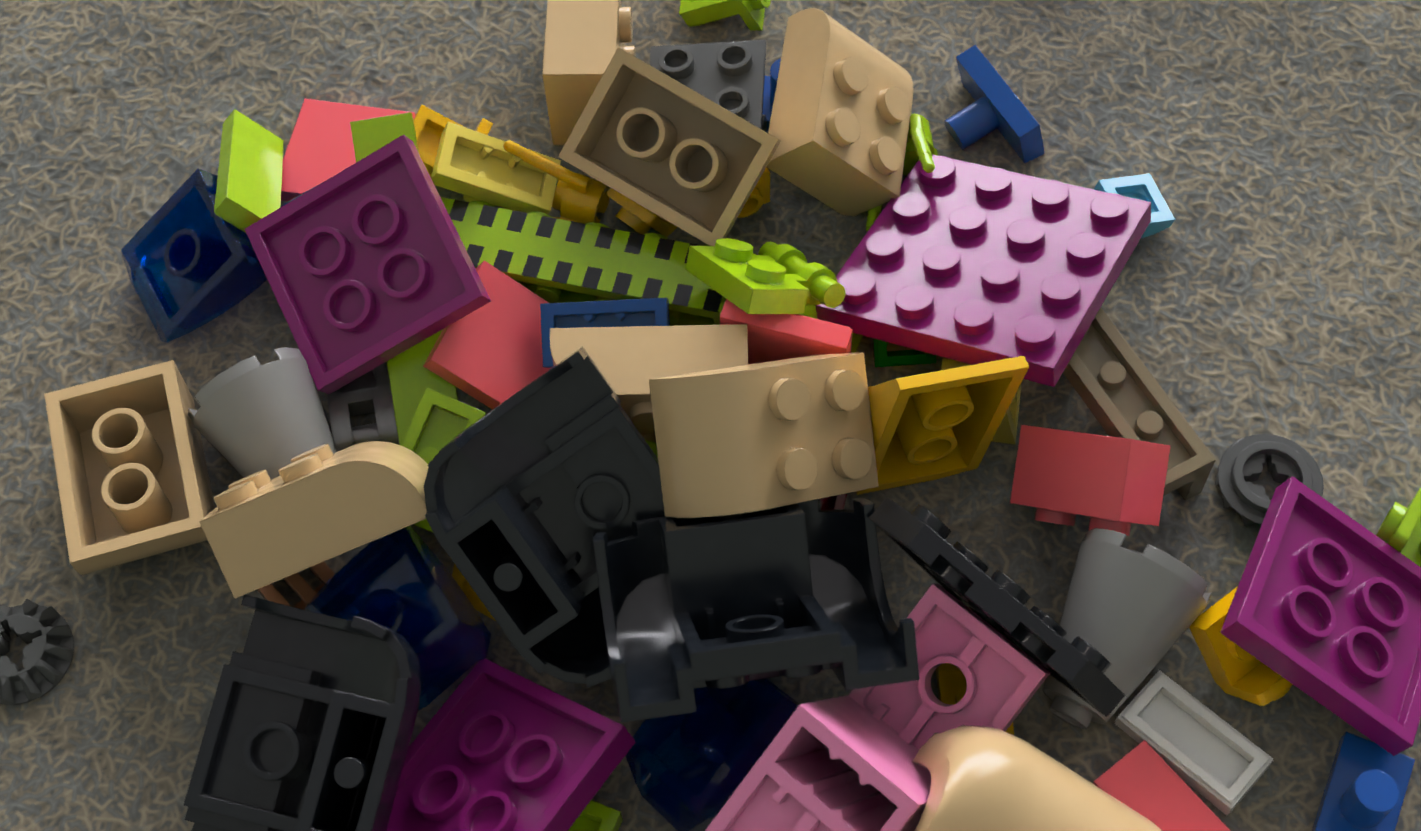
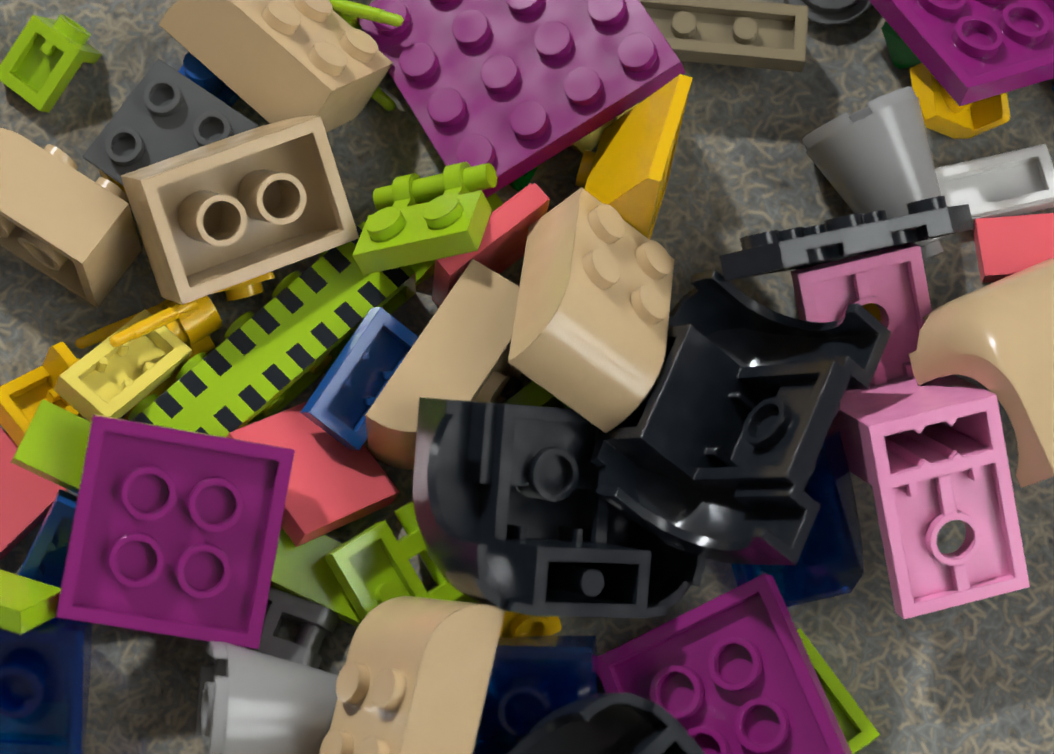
camera: 65 degrees left, 10 degrees up
(1090, 476) = (761, 104): coral brick -> none

